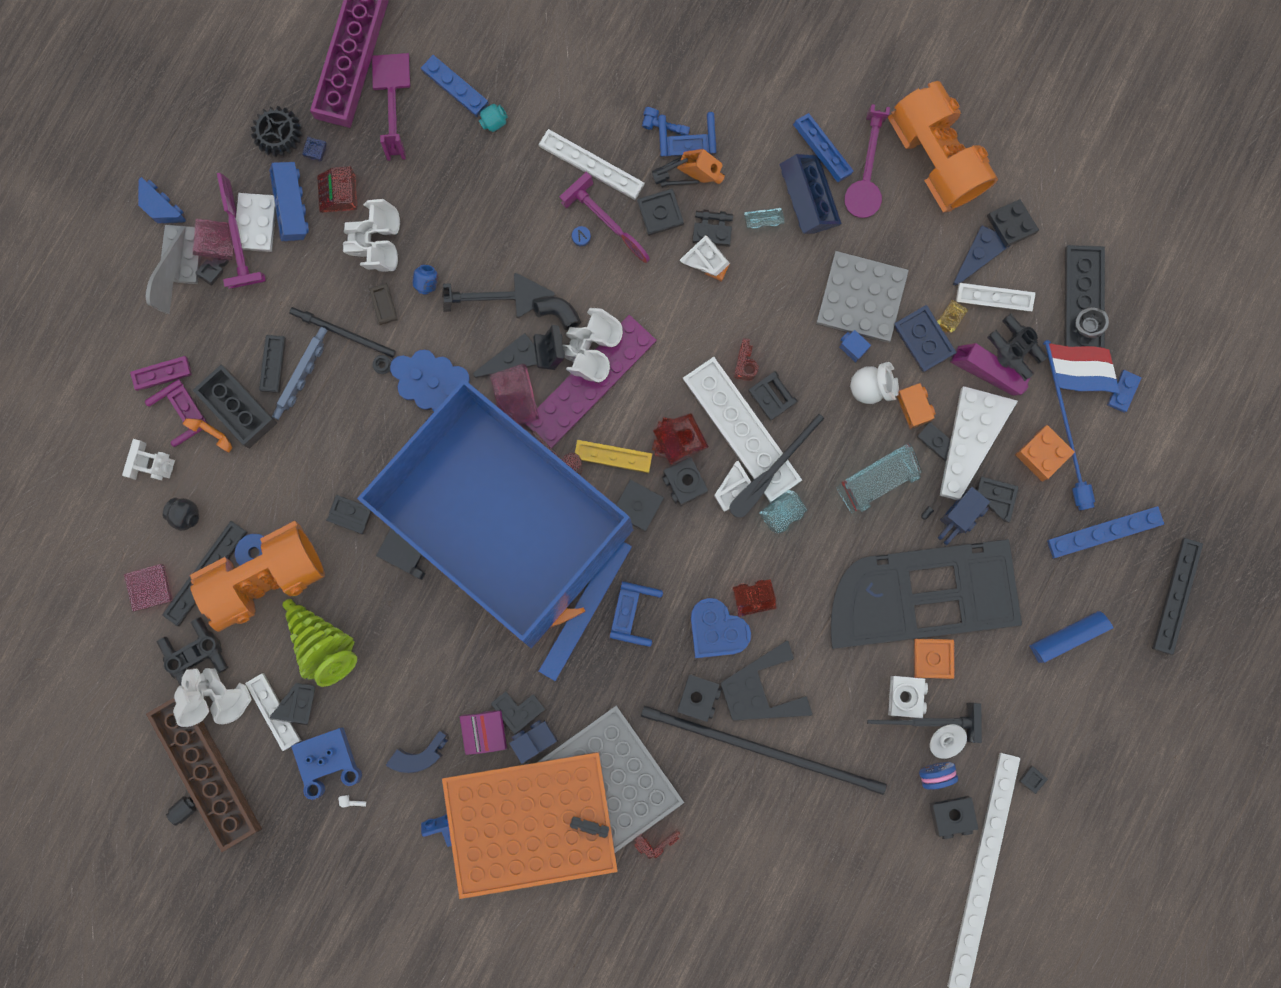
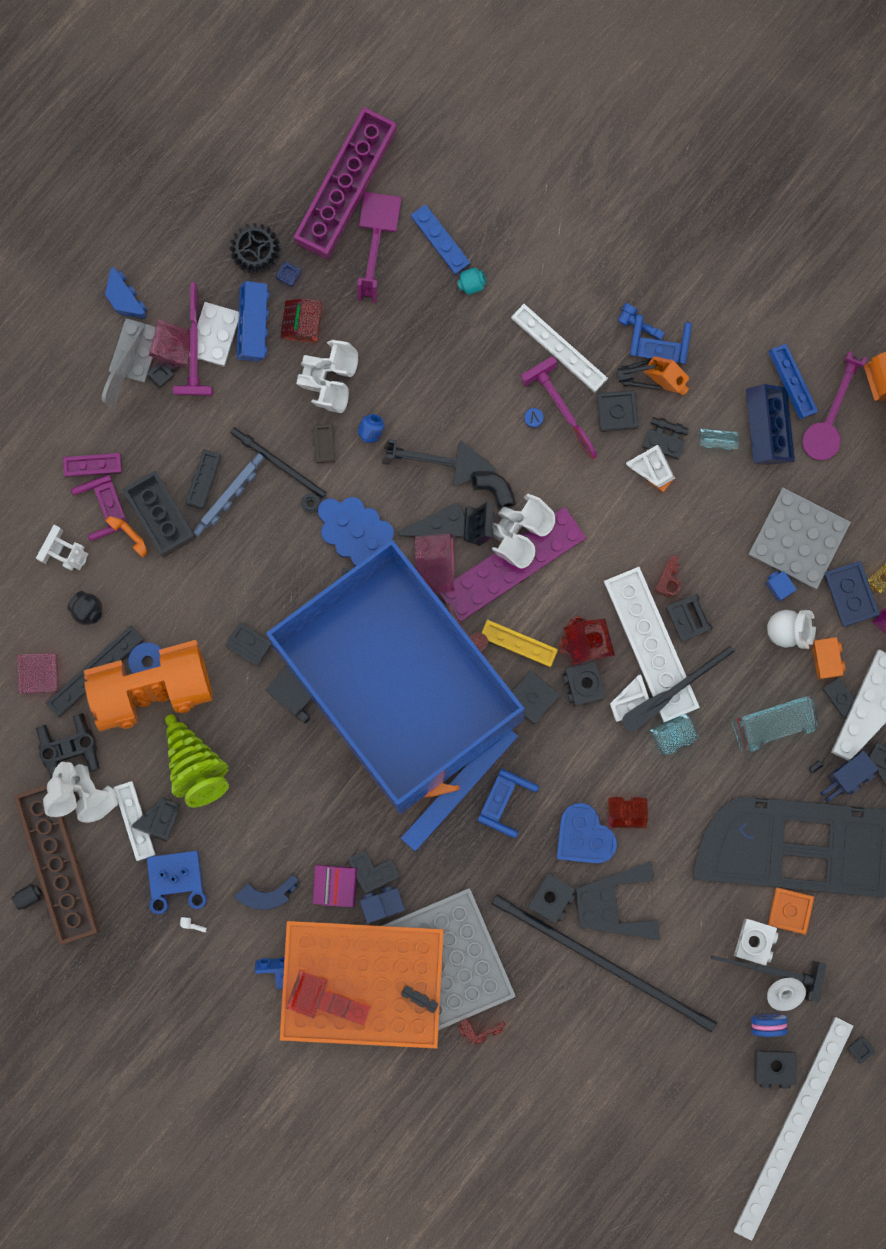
camera: 10 degrees right, 0 degrees up
(480, 848) = (310, 995): none -> clear red plate

